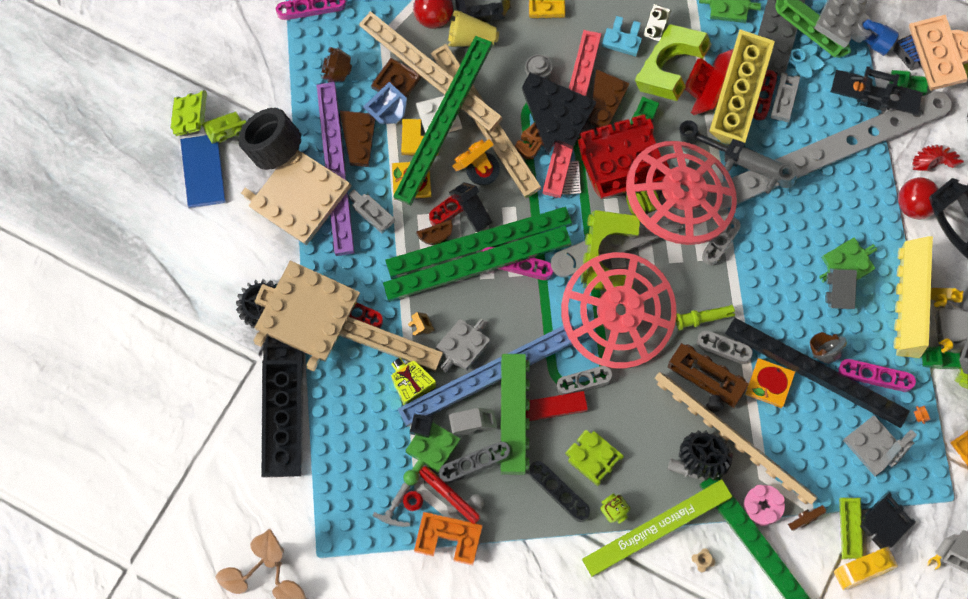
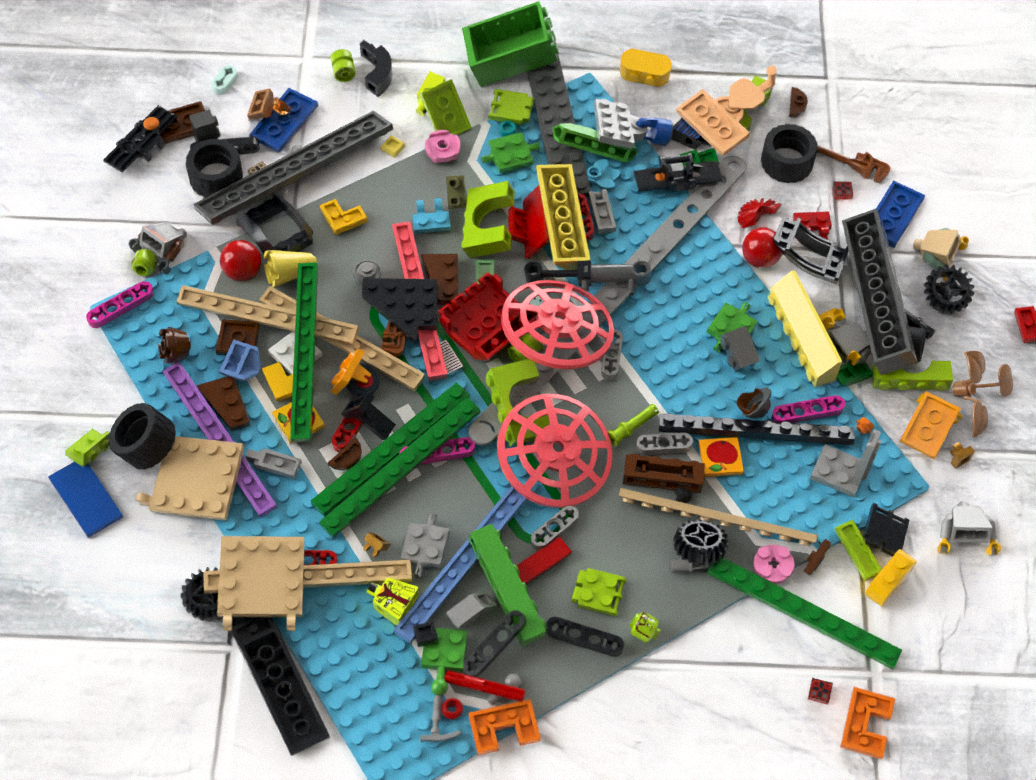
camera: 30 degrees left, 10 degrees down
(188, 113) = (45, 448): lime plate -> none
(656, 528) = (690, 628): lime tile -> none
(704, 554) = (746, 632): tan plate -> none

